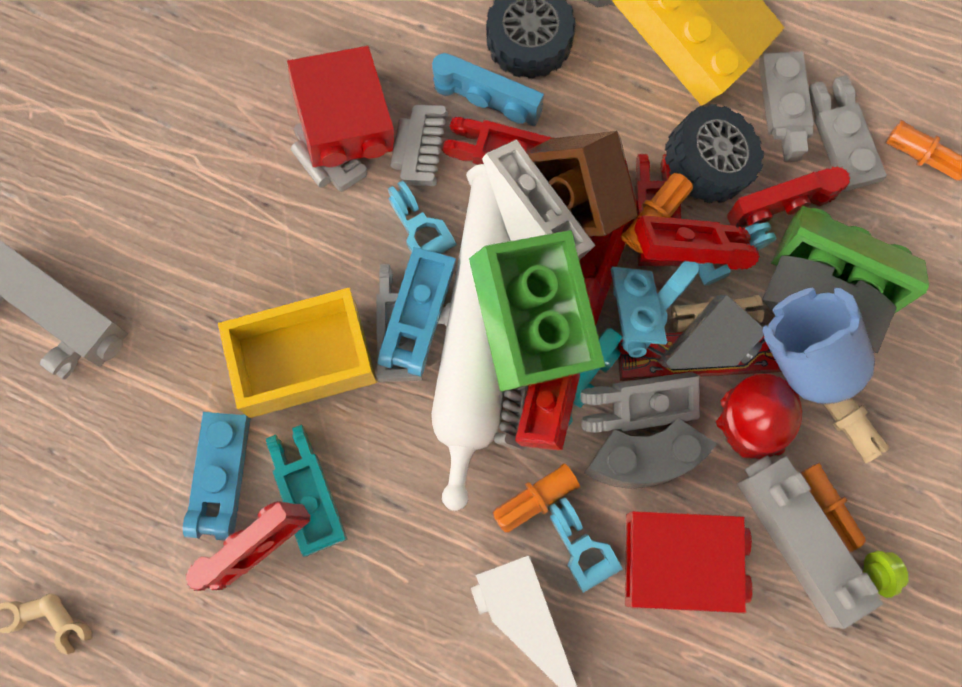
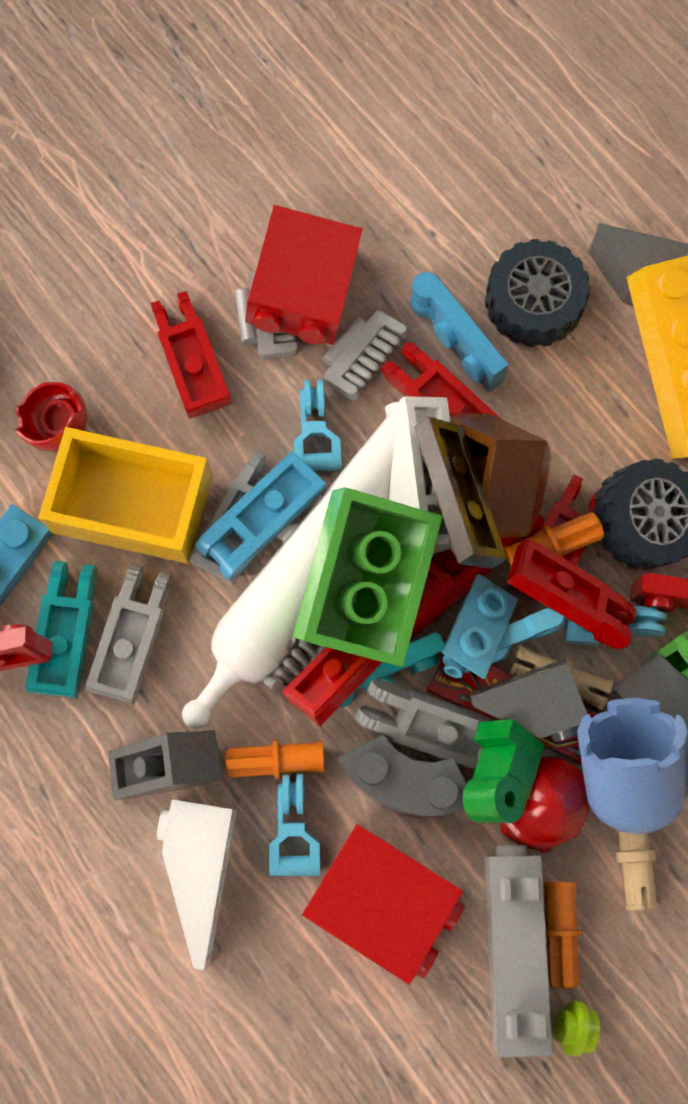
camera: 30 degrees right, 0 degrees up
(193, 323) = (47, 413): none -> red hair
(285, 219) = (191, 360): none -> red hinge
(363, 469) = (128, 638): none -> light grey hinge
(450, 551) = (165, 764): none -> dark grey slope
(574, 206) = (459, 493): none -> dark brown plate
(723, 408) = (502, 773): none -> green leg

